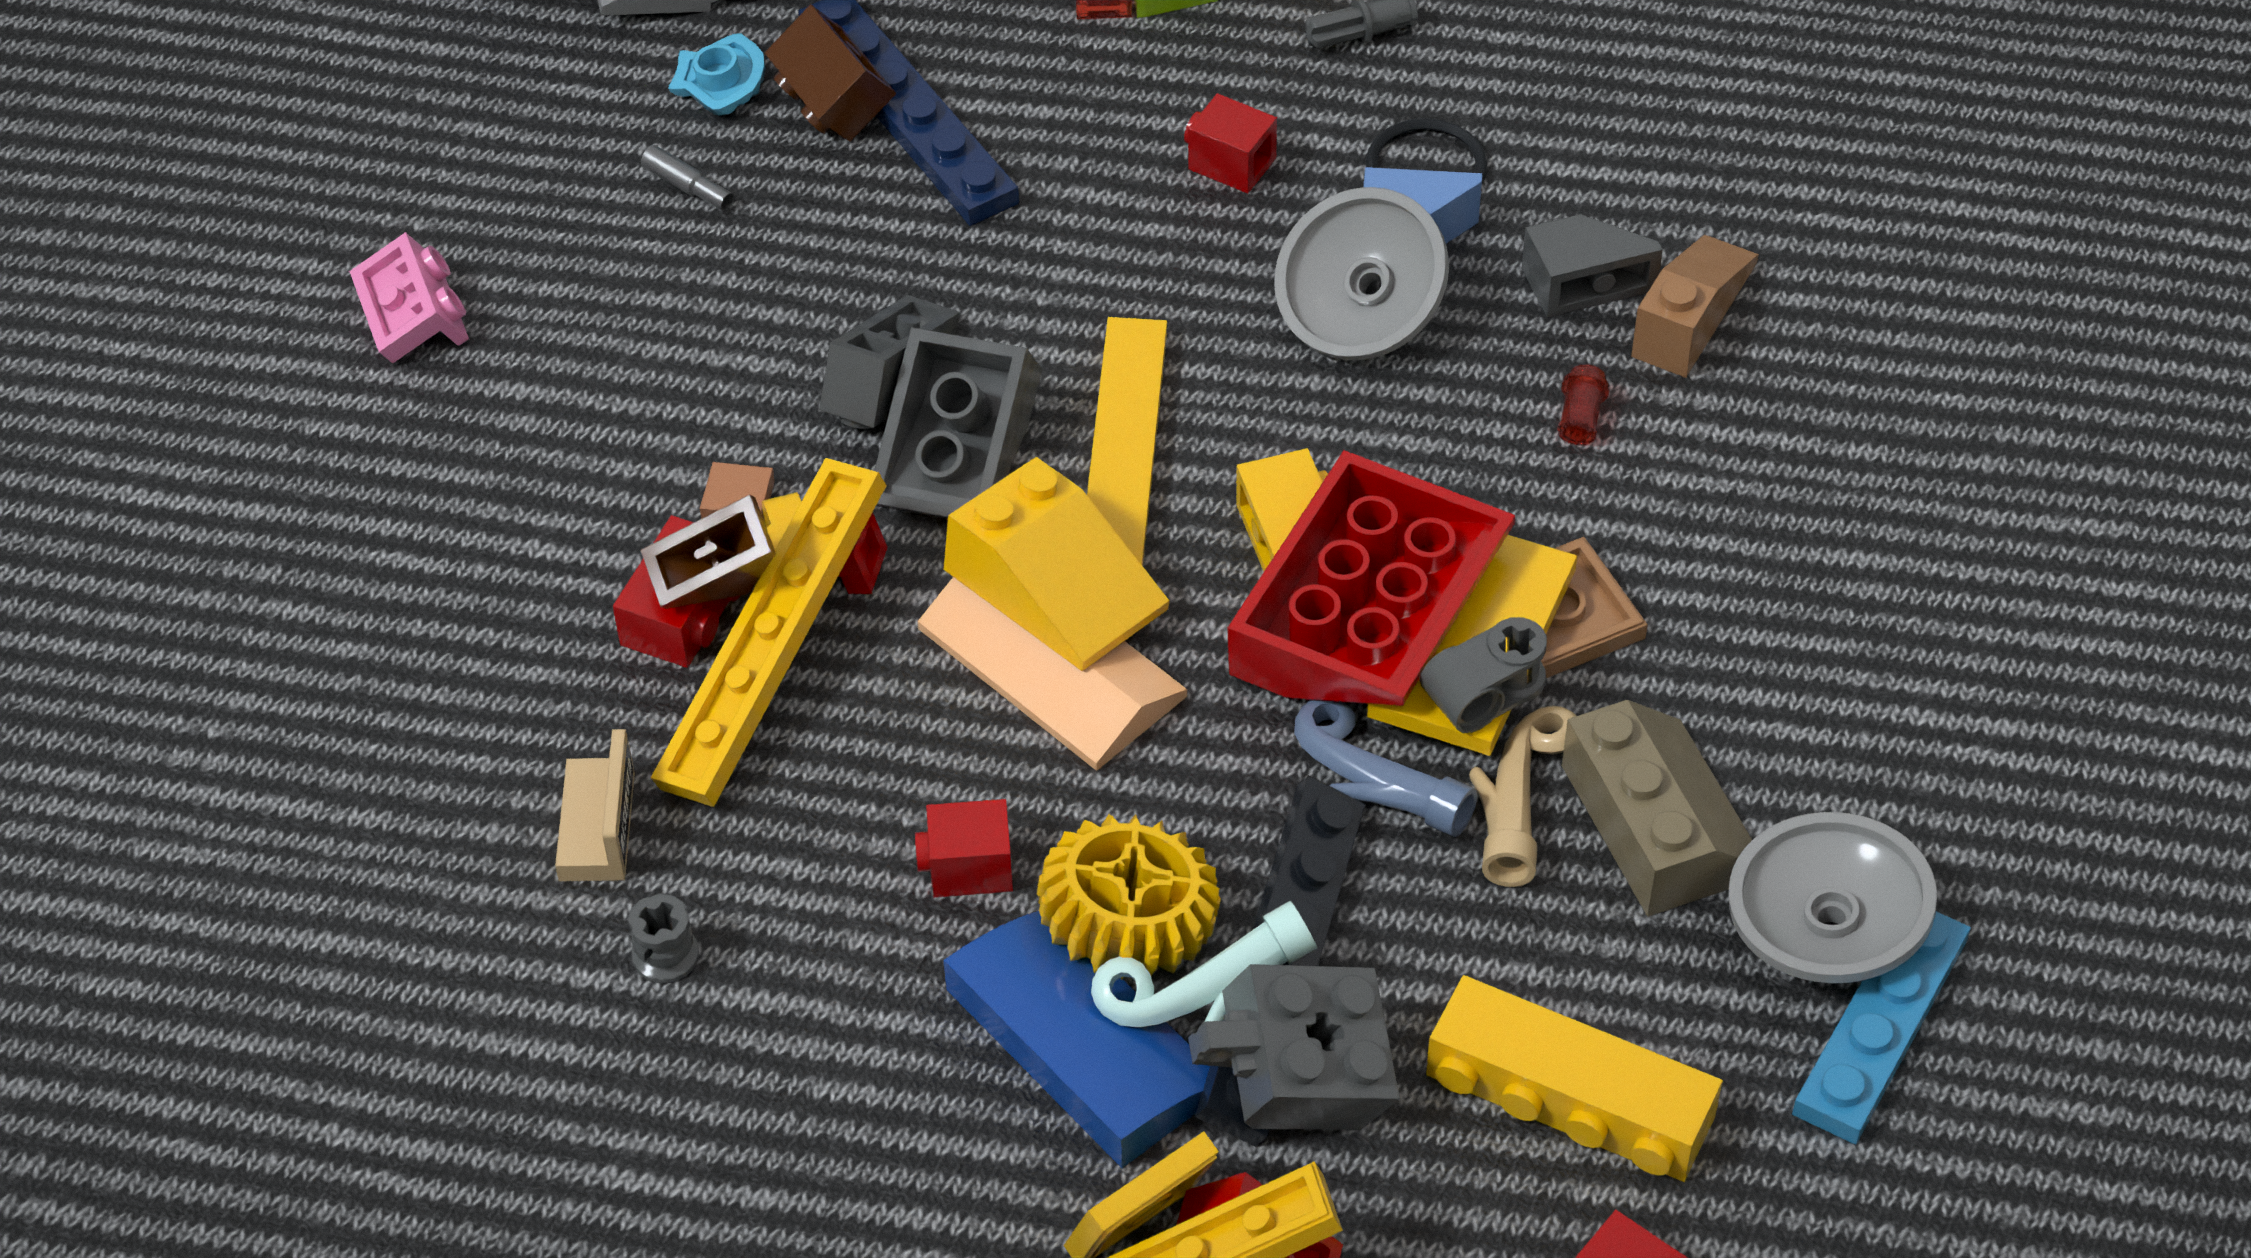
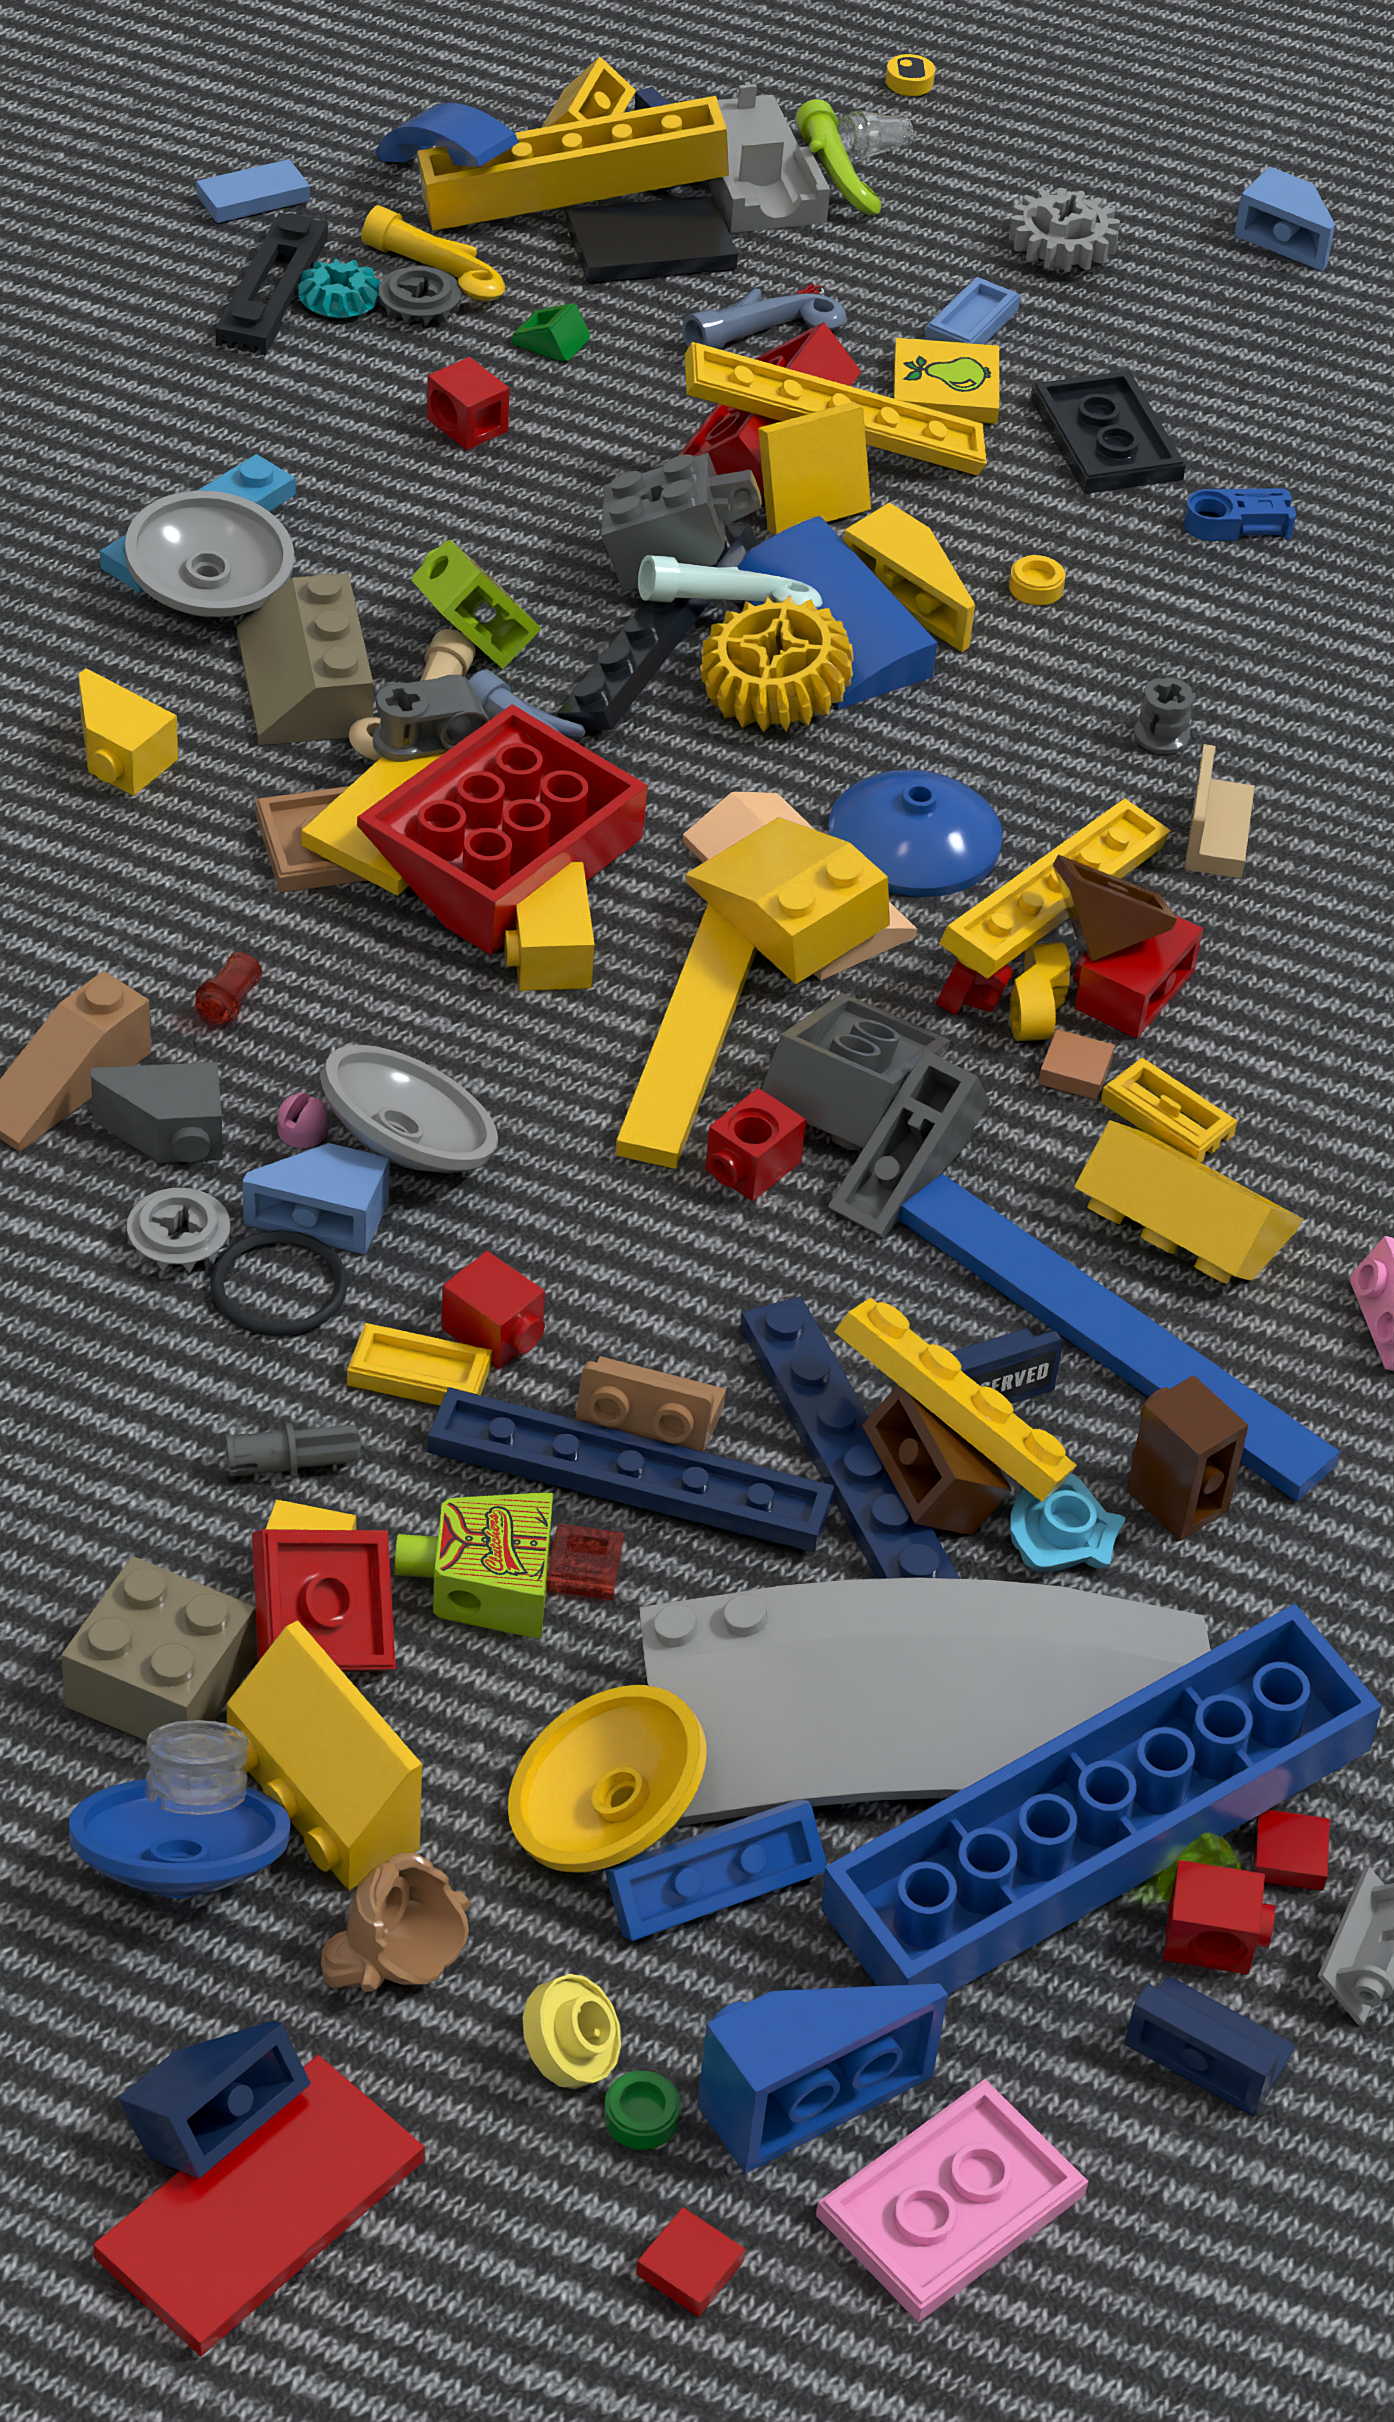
camera: 175 degrees left, 5 degrees down
(618, 88) = (1186, 1457): none -> reddish brown brick
(618, 354) = (1184, 1204): none -> yellow slope
(634, 471) = (1162, 1115): none -> yellow tile
(680, 238) = (1109, 1327): none -> blue tile
(685, 177) = (1102, 1404): flat silver pin -> none
(793, 171) = (1014, 1363): none -> dark blue panel
(819, 77) = (971, 1410): none -> yellow plate
(833, 1159) = (1037, 580): none -> yellow tile
(902, 764) = (919, 830): none -> blue dish
(966, 848) = (903, 730): red brick -> none
(1005, 1110) = (915, 571): none -> yellow slope
(1043, 322) = (755, 1144): none -> red brick
(1078, 83) = (649, 1403): none -> medium nougat bracket
(1083, 47) = (631, 1469): none -> dark blue plate
(1299, 109) = (416, 1365): none -> yellow tile
(1473, 304) = (311, 1122): none -> bright pink hinge
(1506, 890) = (459, 587): none -> lime torso
(1549, 167) = (164, 1213): none -> light grey gear
(1573, 1078) = (449, 501): yellow brick -> none
(1824, 665) = (124, 734): none -> yellow slope

